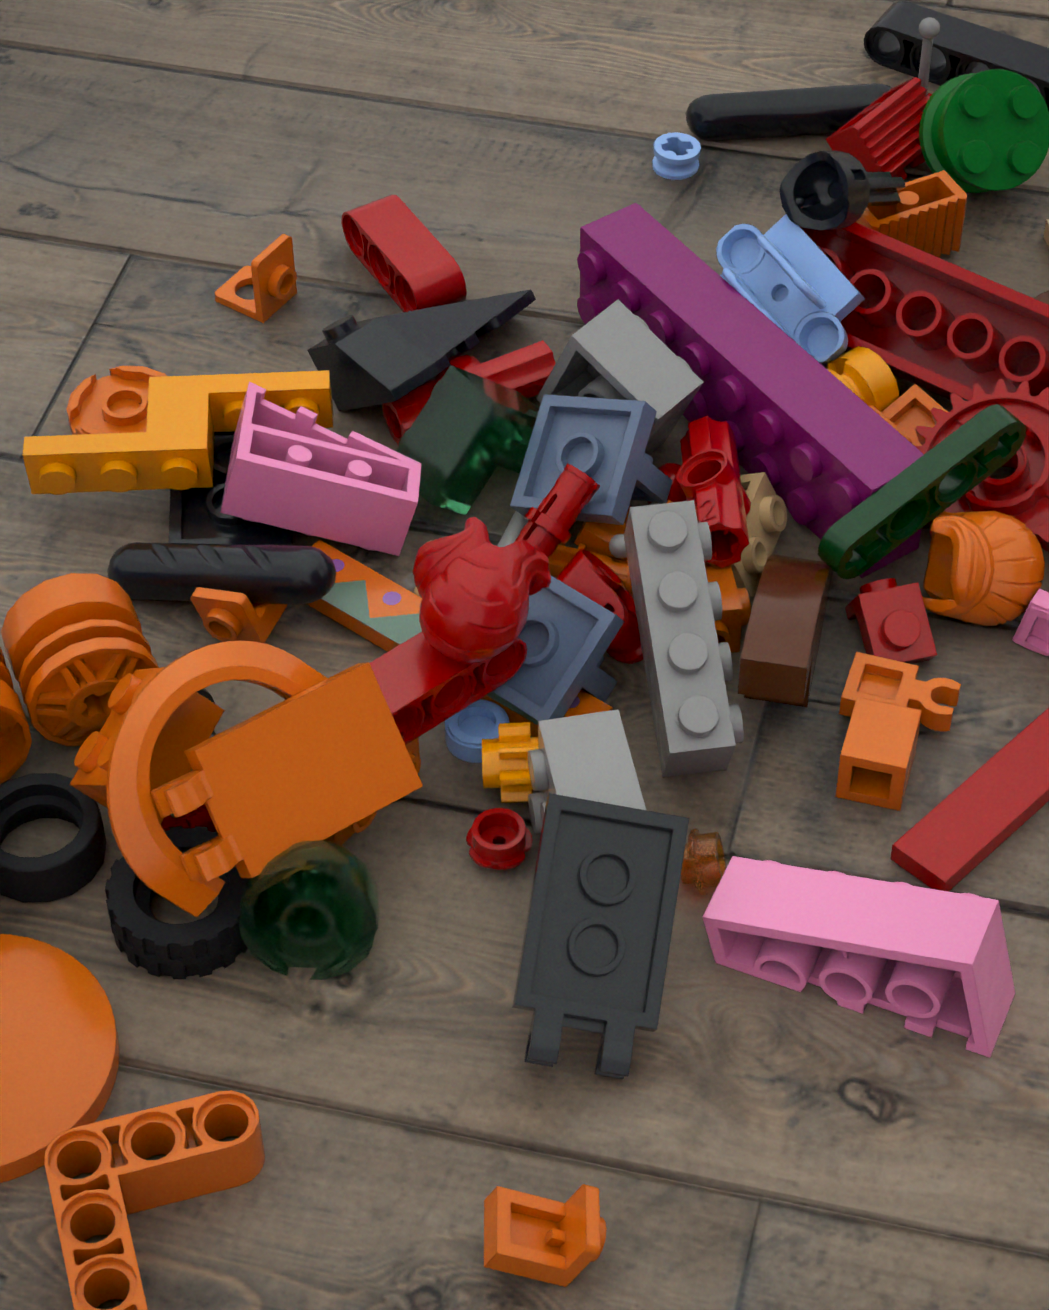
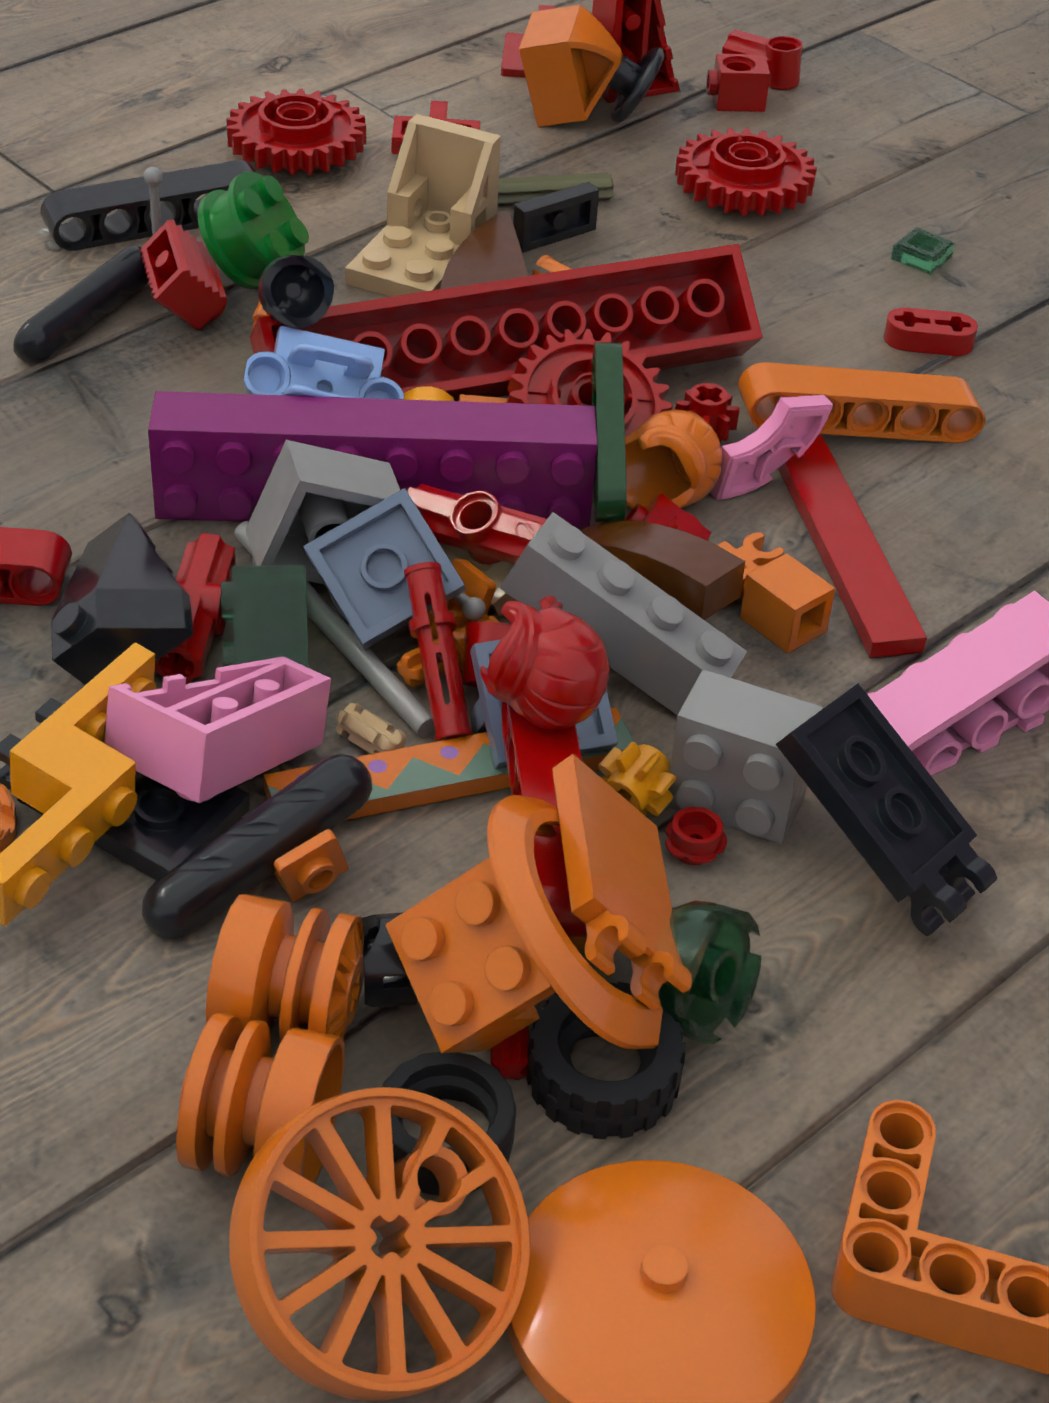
camera: 60 degrees left, 5 degrees down
(676, 156) = (48, 380): light blue bush -> none

